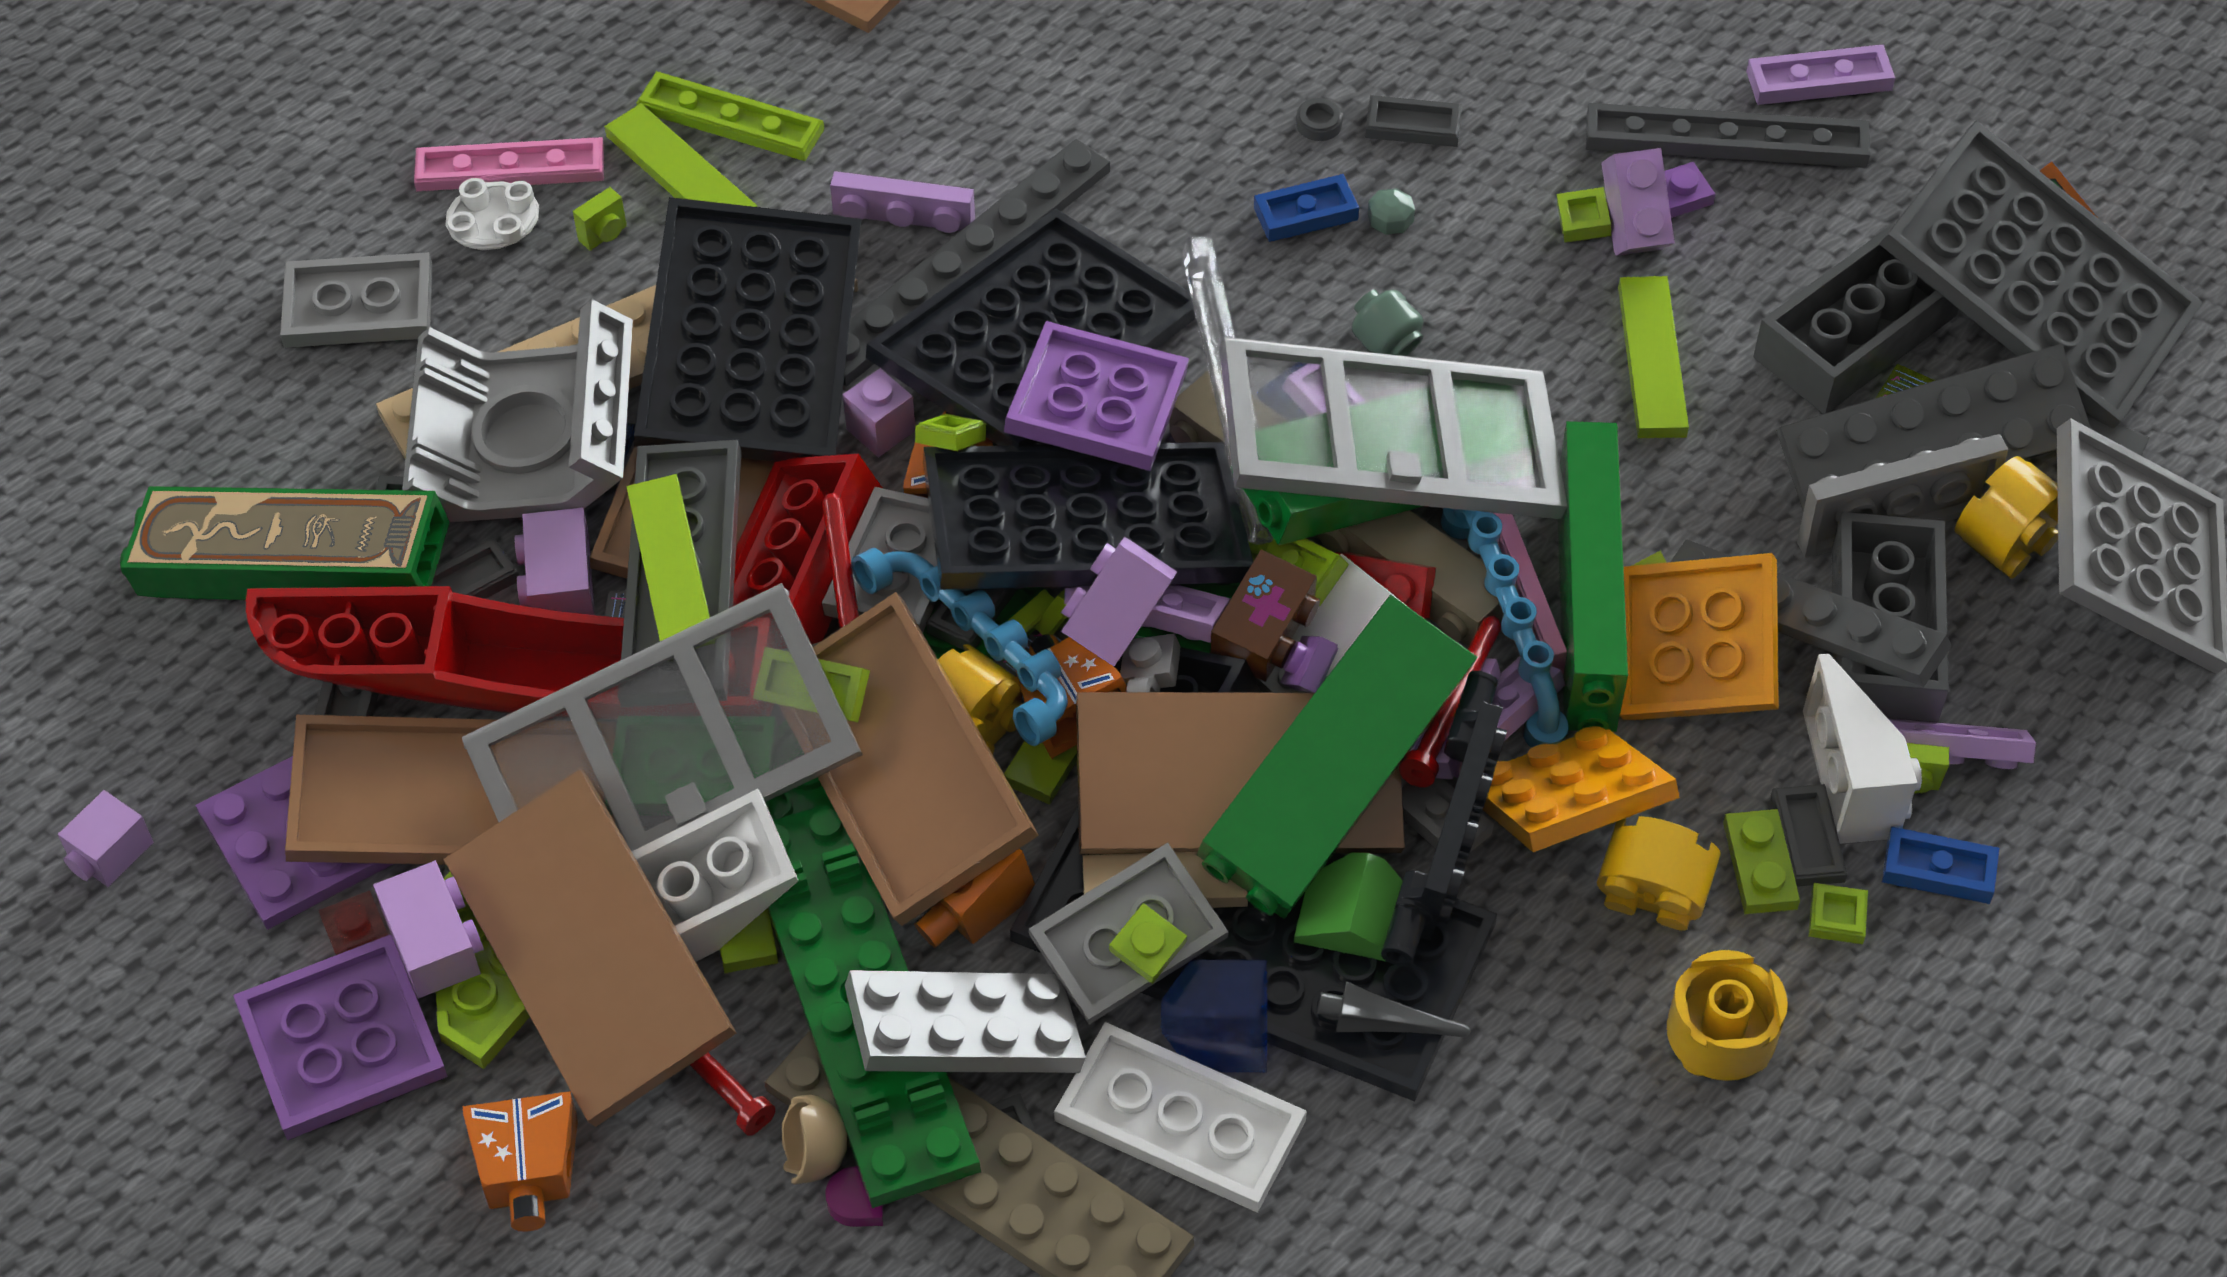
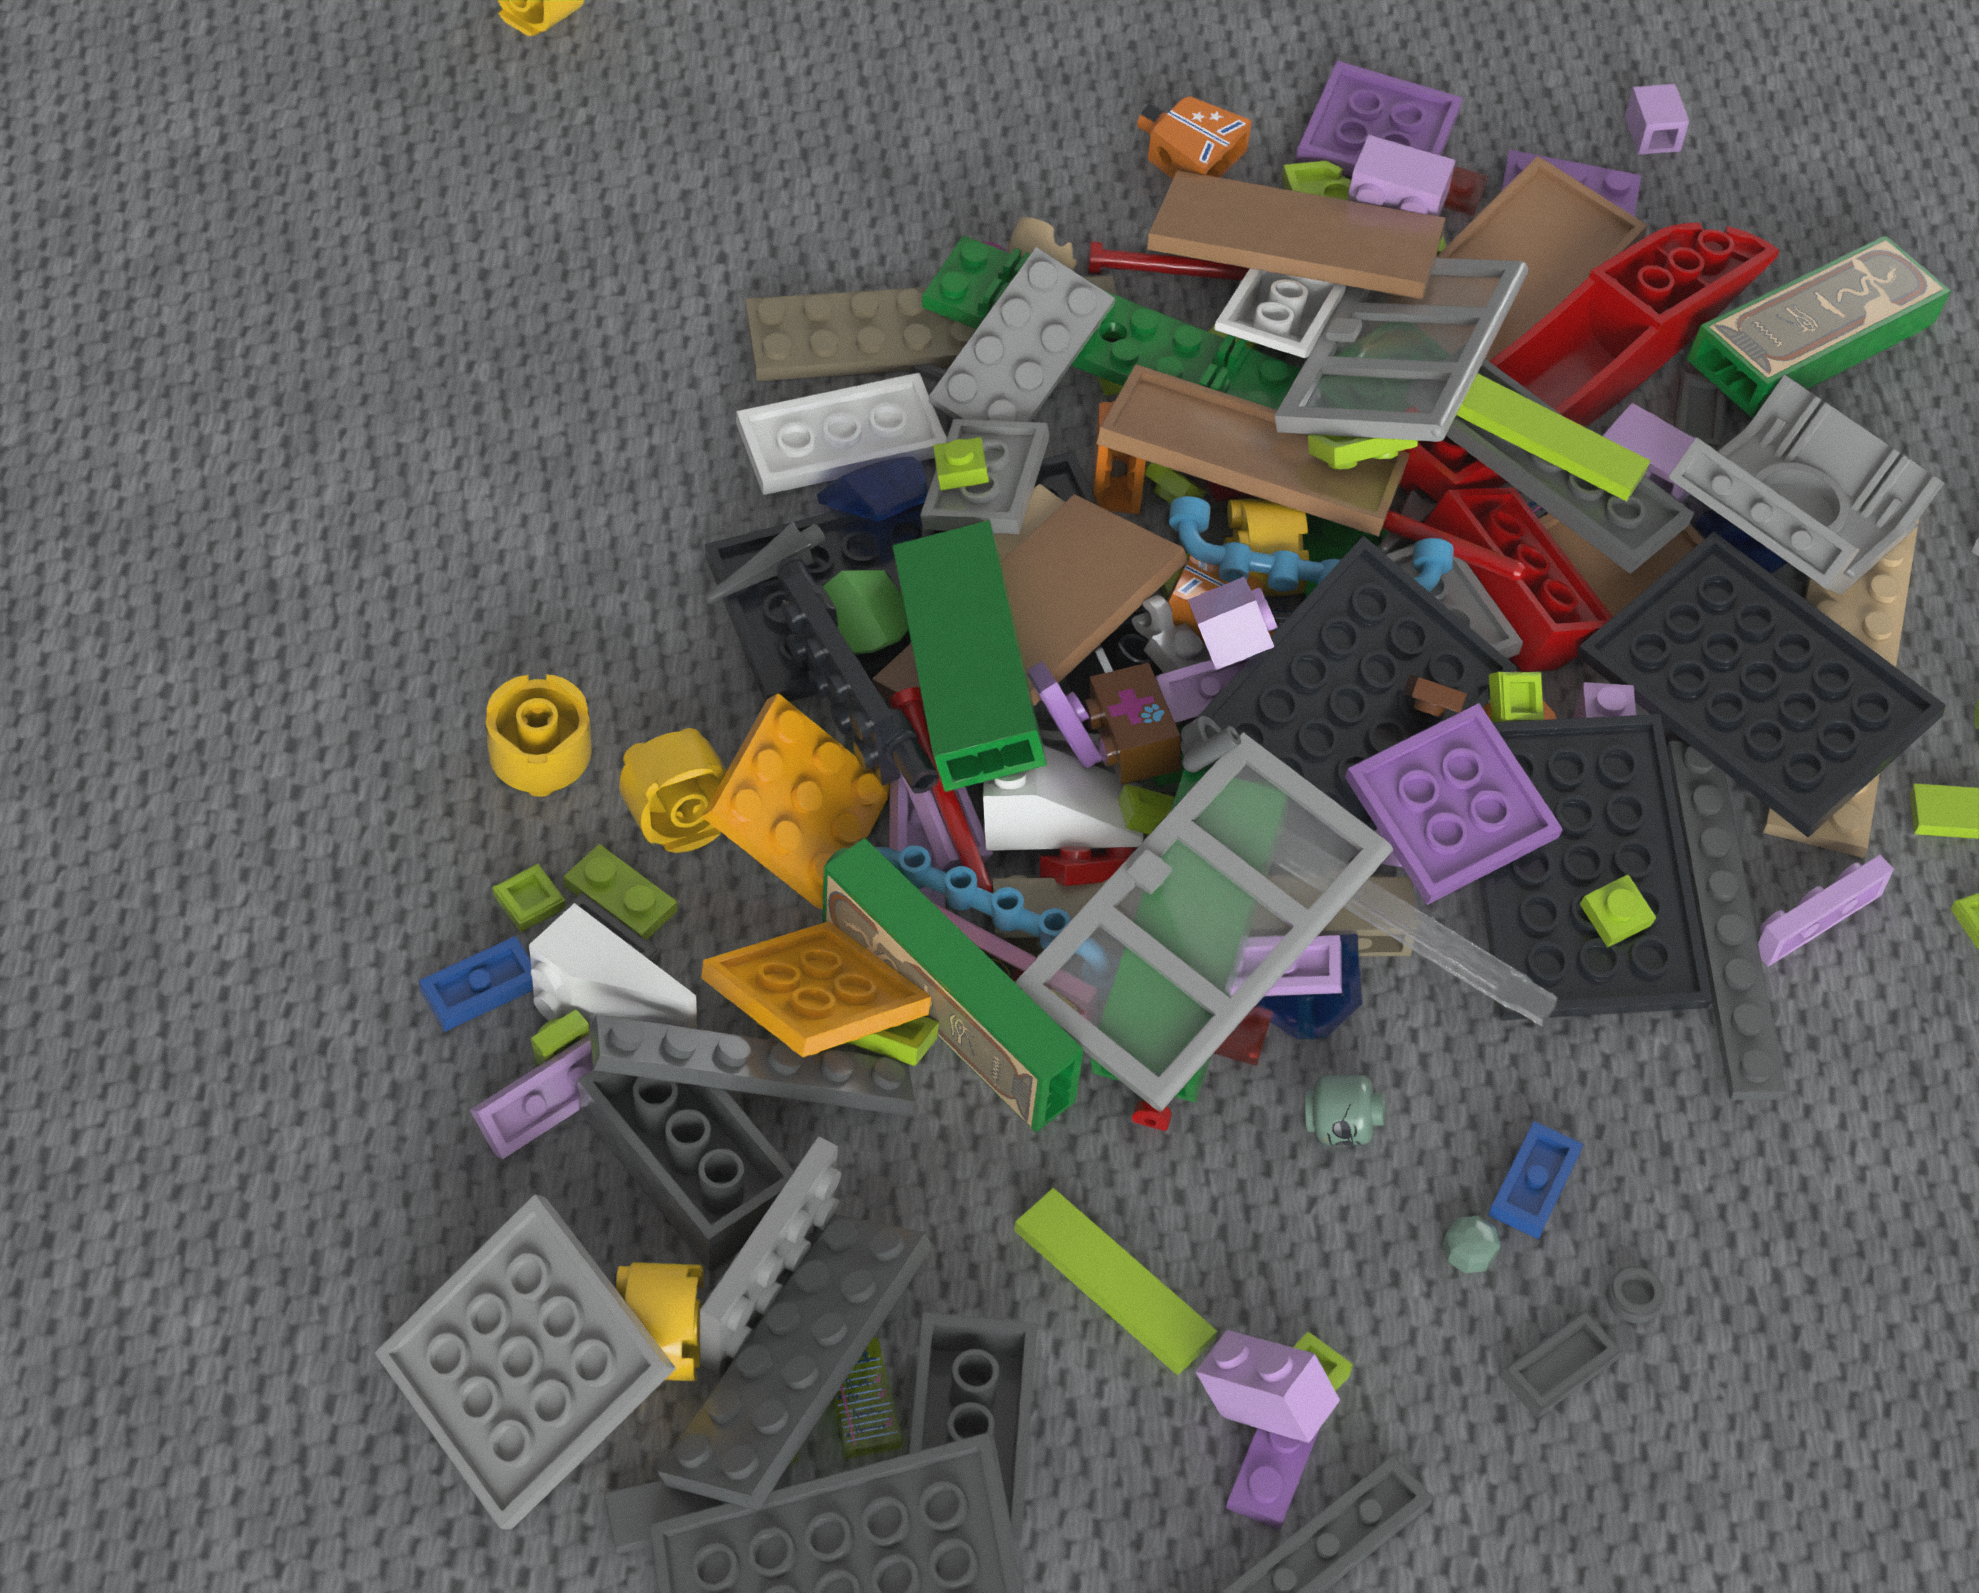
camera: 130 degrees right, 0 degrees up
(1027, 449) = (1433, 697): none -> reddish brown plate
(1058, 277) = (1617, 910): none -> lime plate
(1253, 526) = (1206, 743): none -> dark grey plate

